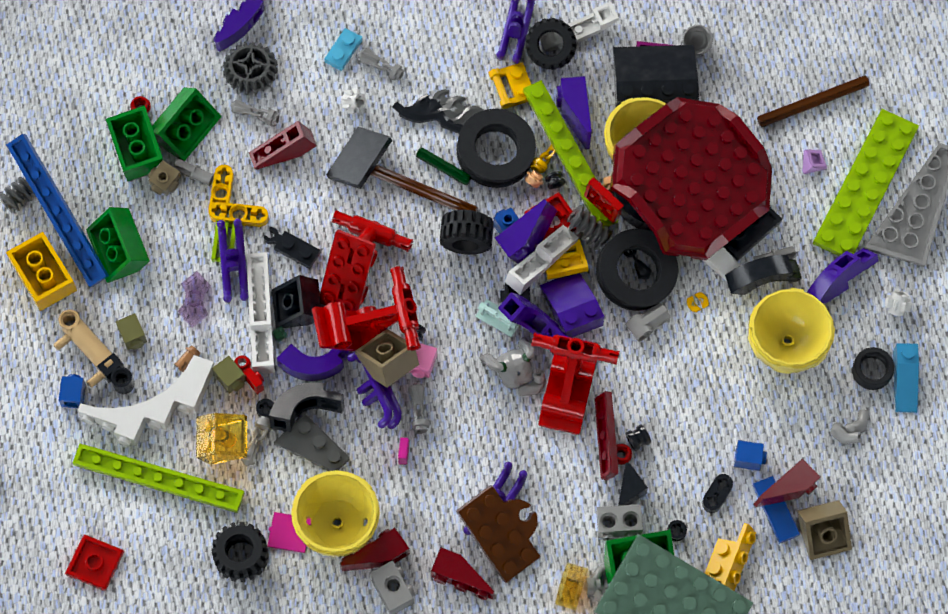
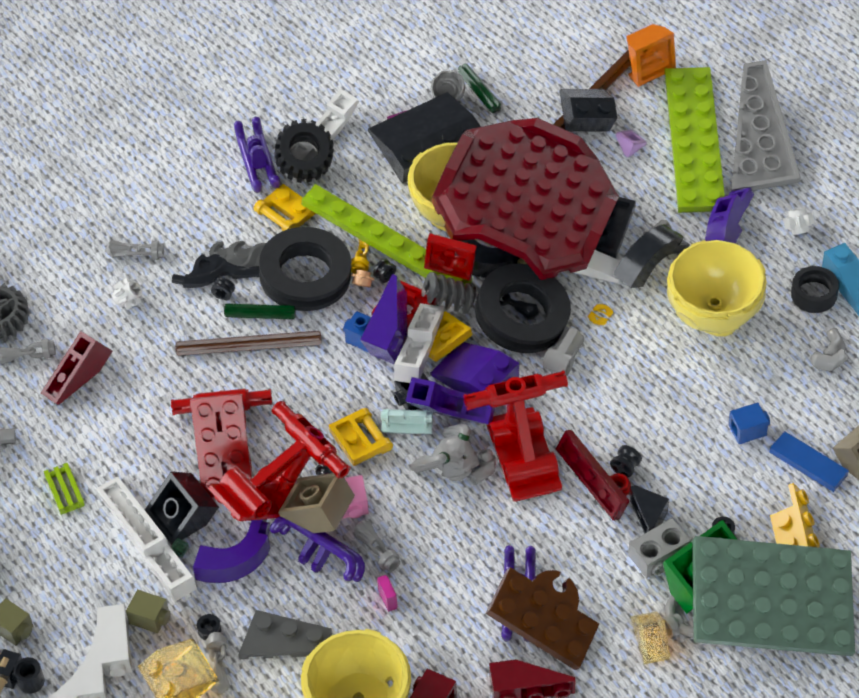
camera: 25 degrees left, 15 degrees down
(184, 360) = (89, 619): medium nougat pin -> none
(193, 308) = (67, 568): clear purple tile -> none
(224, 203) = (43, 453): yellow beam -> none
(233, 260) = (84, 498): dark purple piece -> none
(253, 378) = (178, 602): red plate -> none
(293, 248) = (143, 459): black plate -> none
(300, 399) = (248, 592): black arch -> none
(343, 49) = (86, 255): medium azure plate -> none
(359, 157) = (165, 341): tile -> none
(426, 133) = (223, 288): none -> black bush
(450, 312) = (353, 440): none -> yellow plate
(466, 232) = (325, 352): black tyre -> none
(574, 107) = (366, 192): dark purple slope -> none
(713, 490) = (735, 474): black beam -> none
(724, 50) = (479, 88): none -> dark green axle
(791, 485) = (811, 427): dark red slope -> none
(794, 116) = (588, 110): none -> black slope
(874, 91) = (650, 53): none -> orange brick

